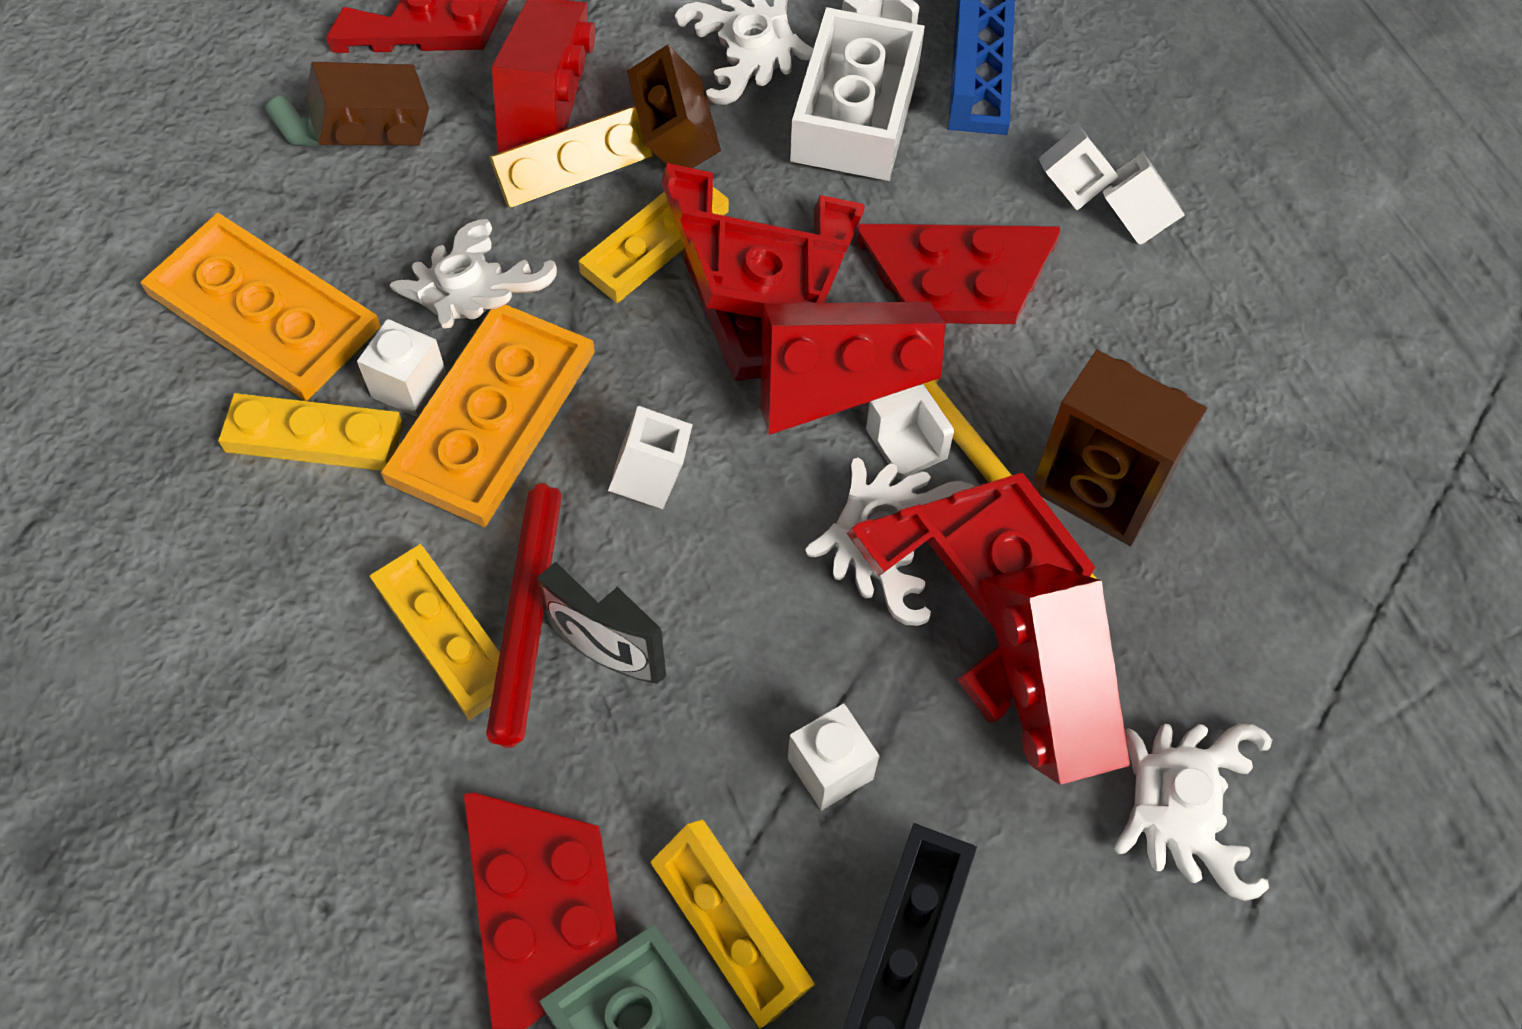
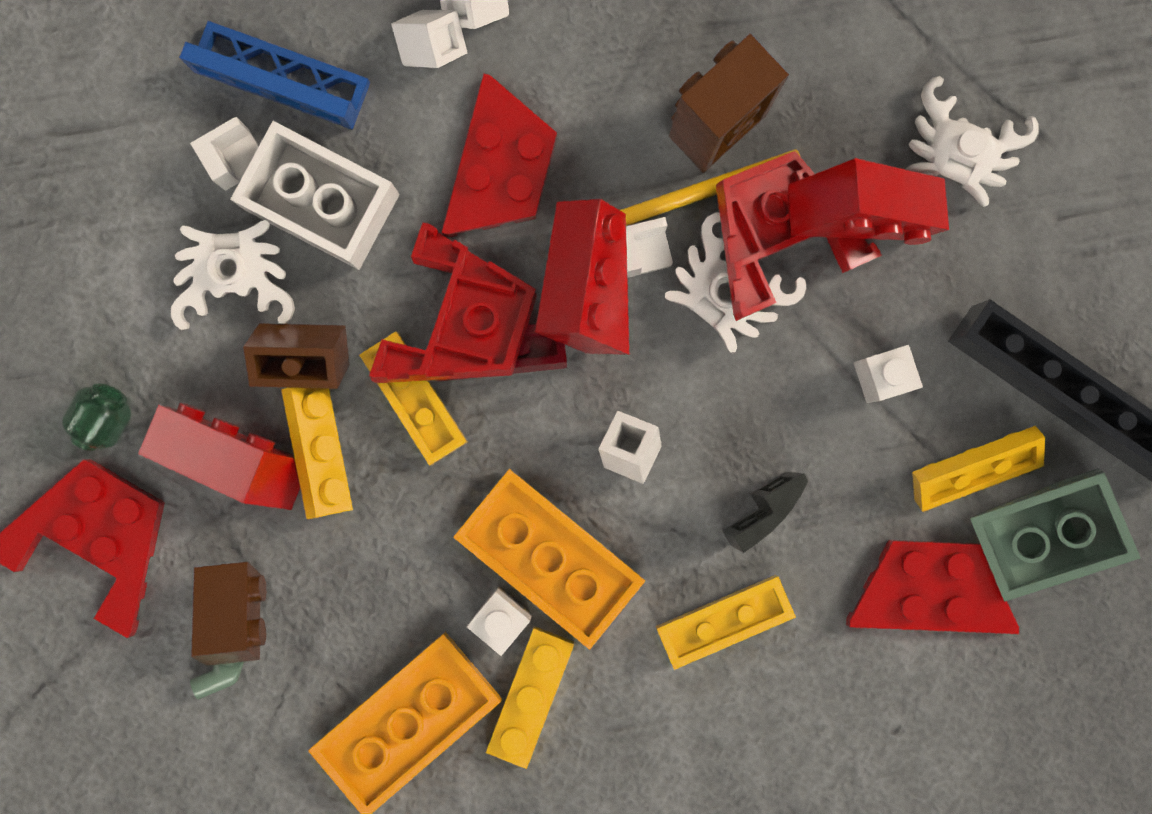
camera: 75 degrees left, 25 degrees up
(467, 284) = (430, 563): white animal -> none
(523, 619) = (732, 562): red axle -> none

